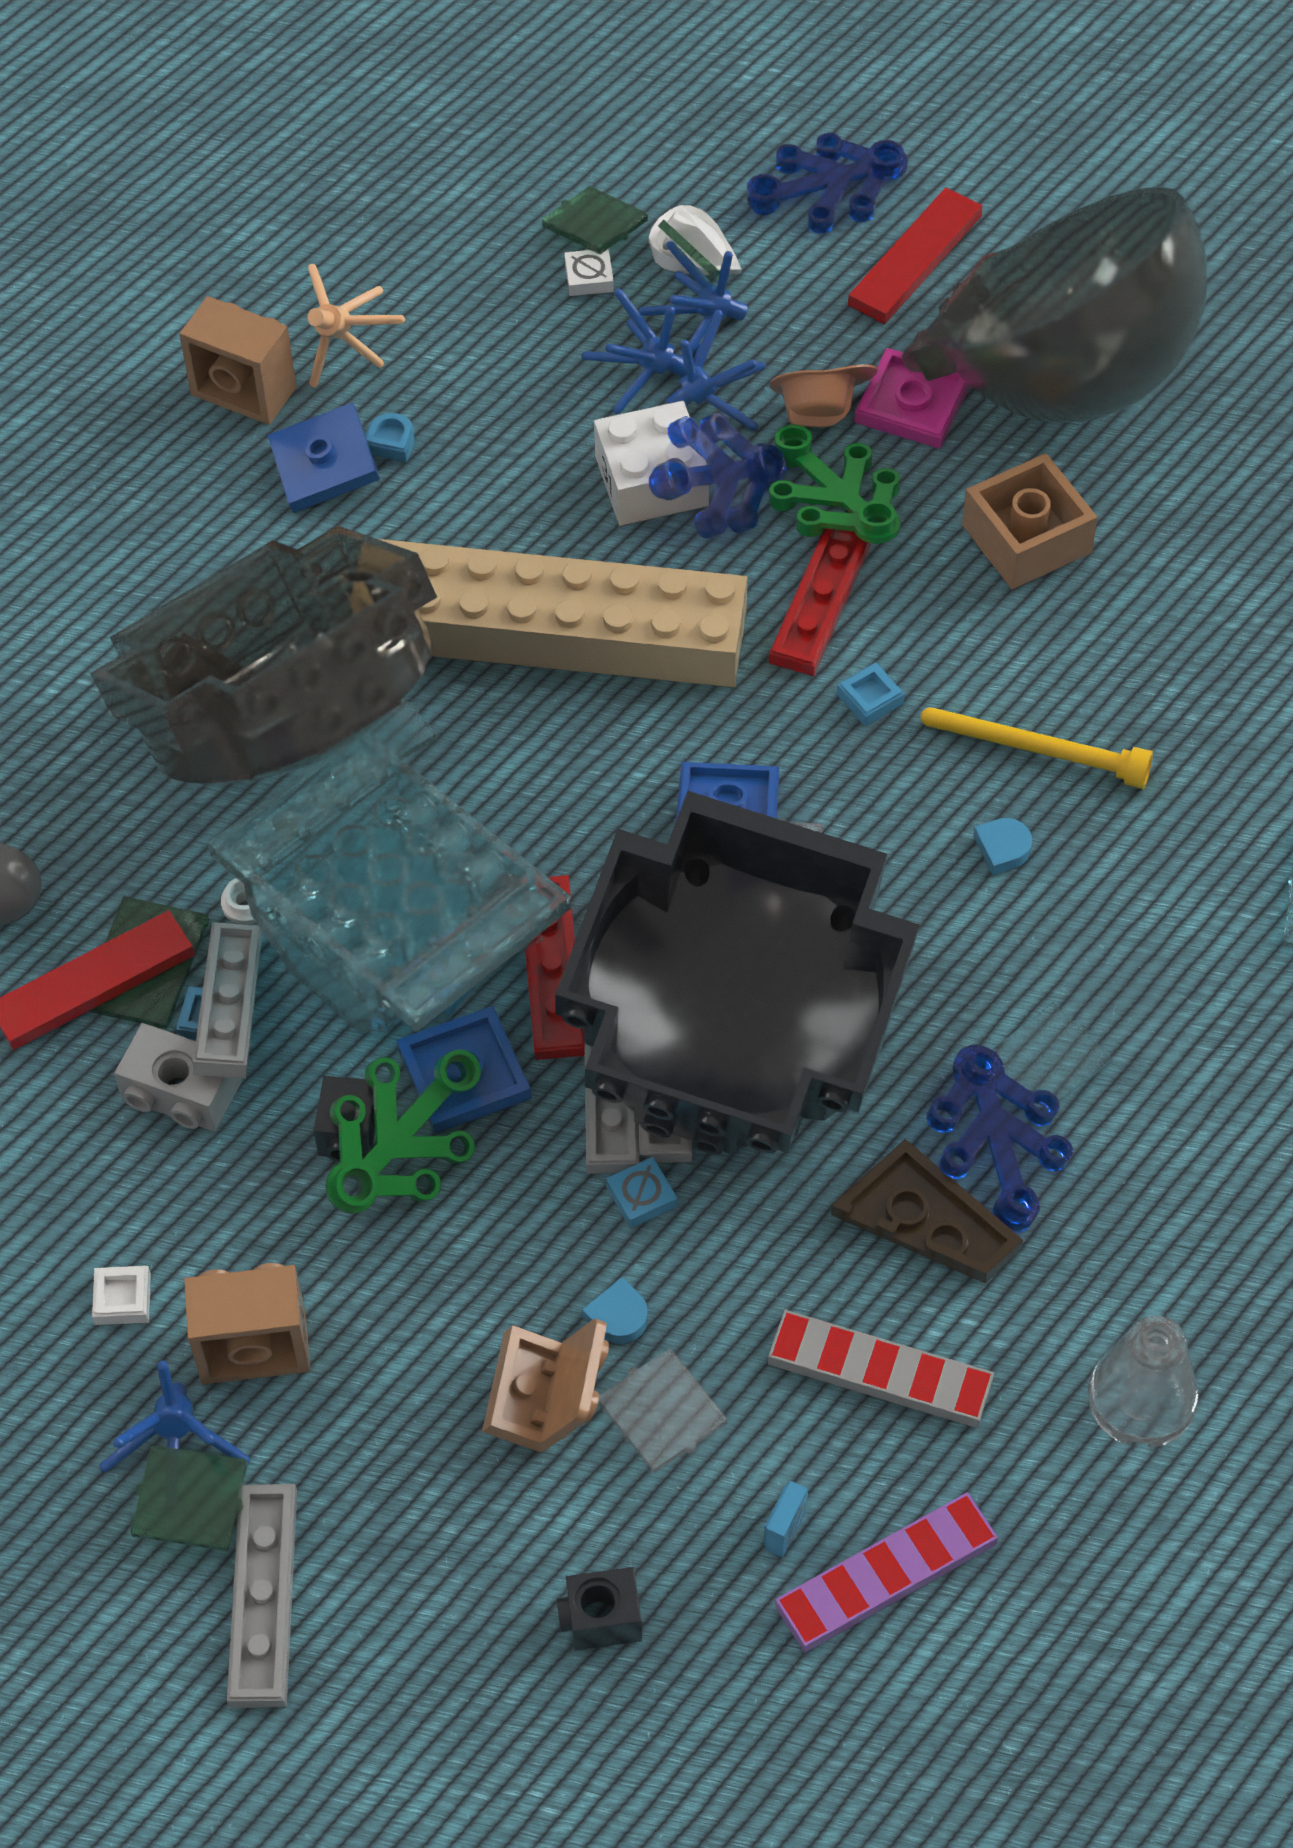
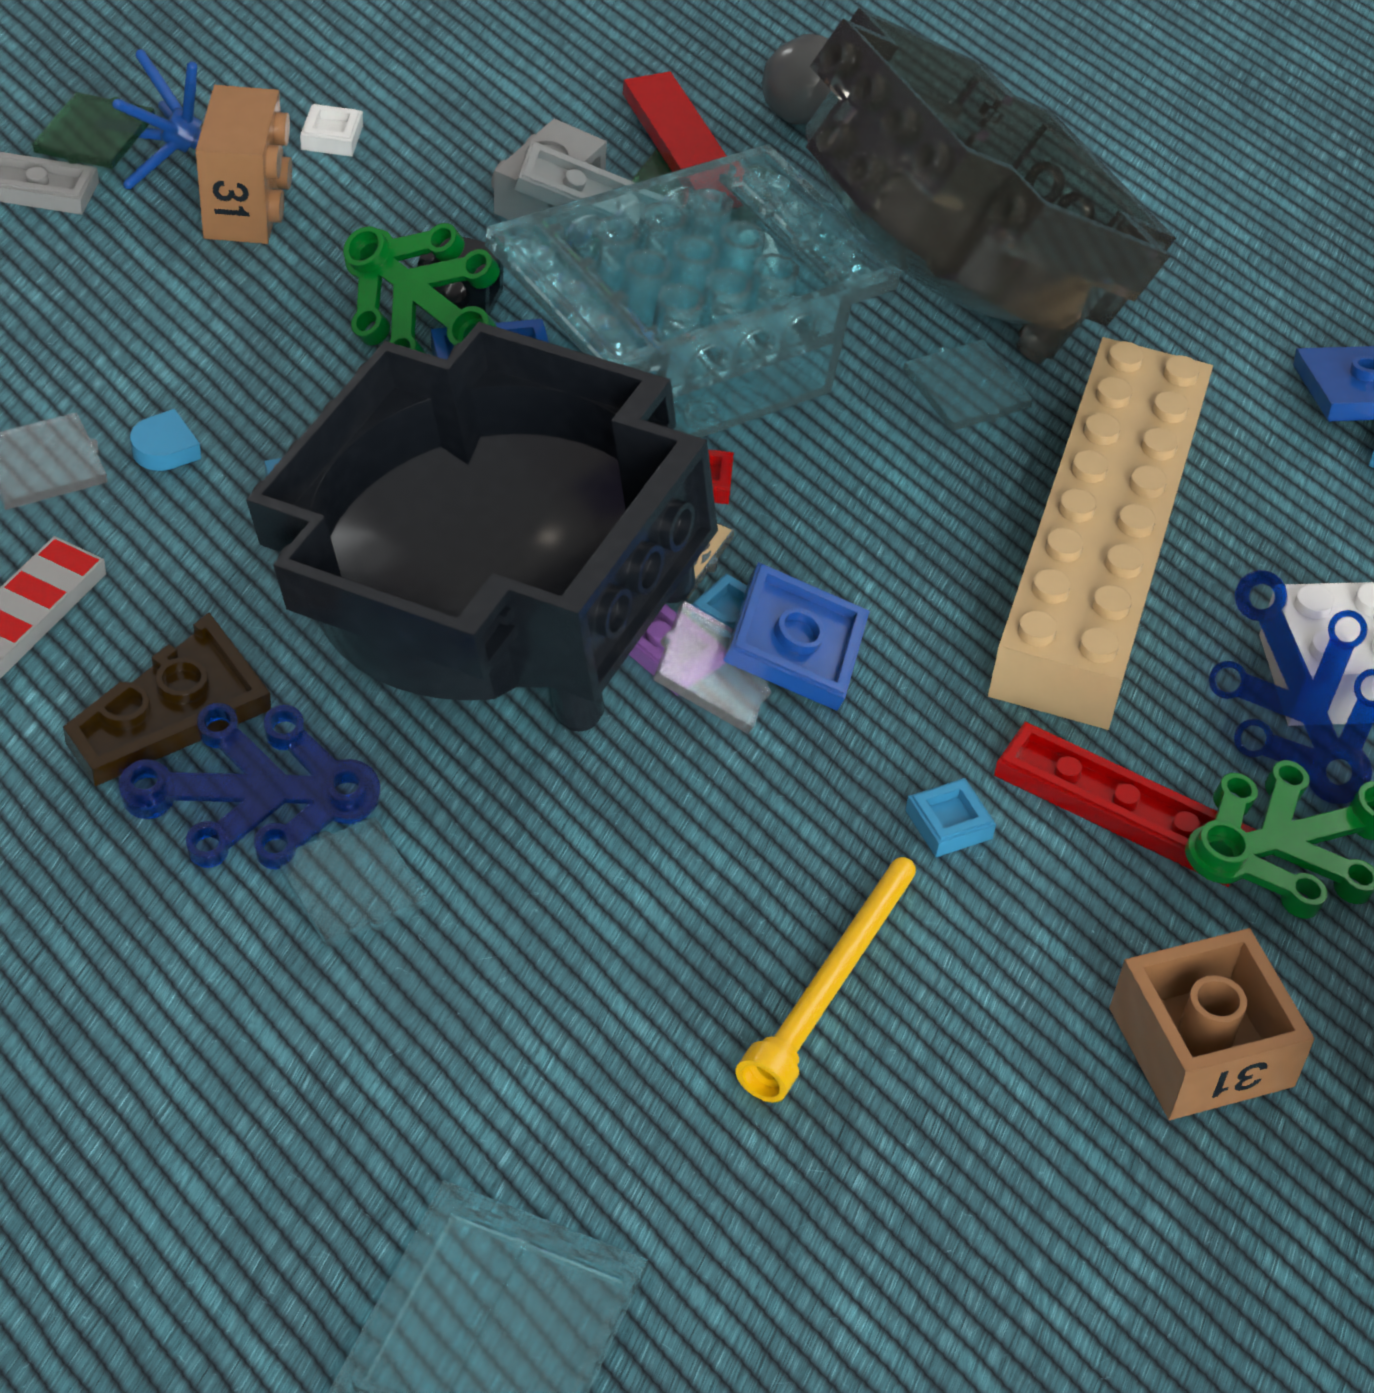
camera: 95 degrees right, 10 degrees down
(545, 1385) = (92, 352): medium nougat bracket -> none
(1003, 844) = (679, 900): dark azure tile -> none

